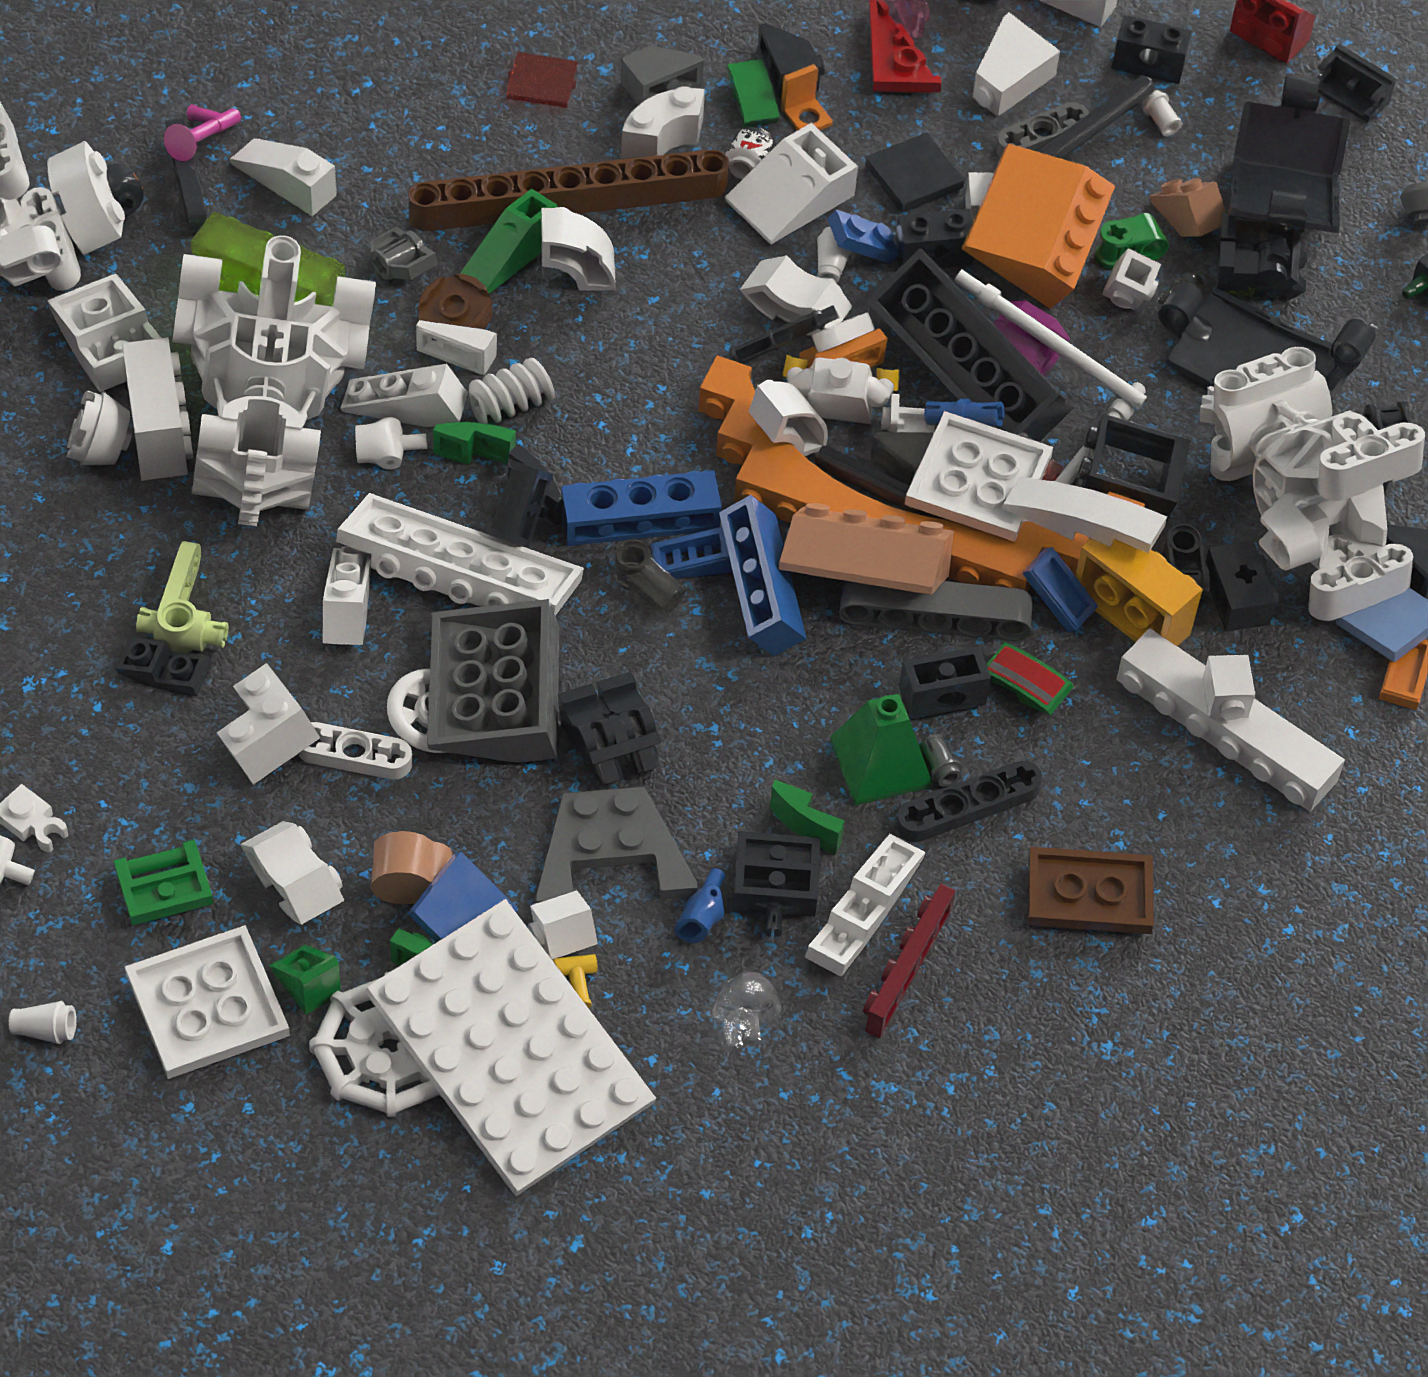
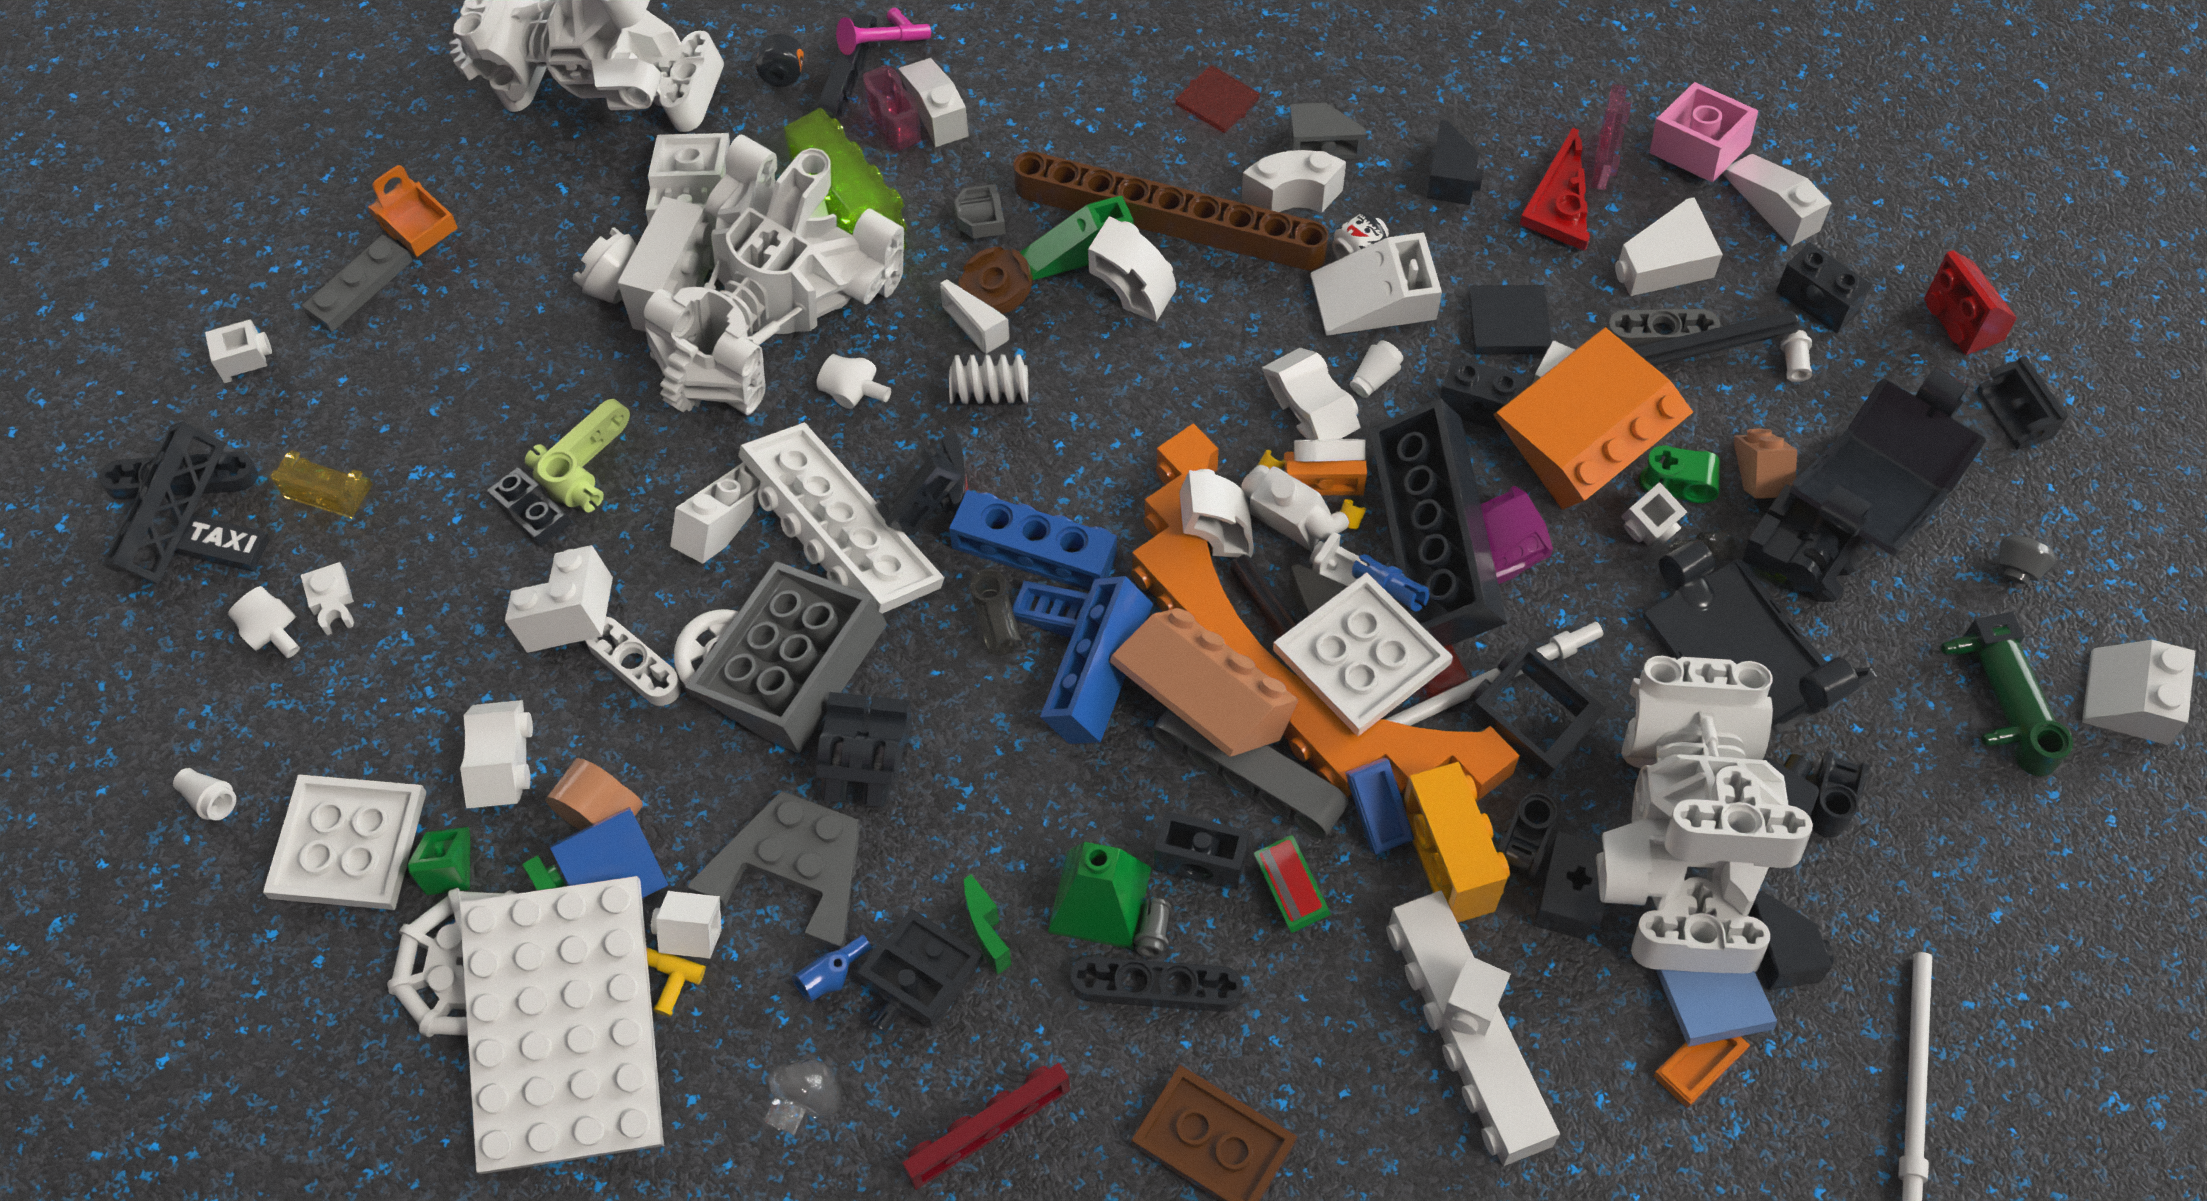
camera: 35 degrees right, 5 degrees up
(91, 211) = (739, 55): white brick -> none
(165, 891) = (384, 719): green plate -> none
(260, 192) = (892, 107): none -> clear pink brick
(412, 396) = (899, 346): white slope -> none
(464, 439) = (923, 410): green slope -> none
(753, 92) = (1401, 183): green slope -> none
(783, 335) = (1272, 429): black piece -> none
(799, 97) = (1443, 202): orange bracket -> none
(863, 236) = (1411, 363): blue plate -> none
(865, 904) = (985, 1044): white slope -> none
(990, 297) = (1487, 476): white bar -> none
(1082, 510) = (1433, 743): white slope -> none

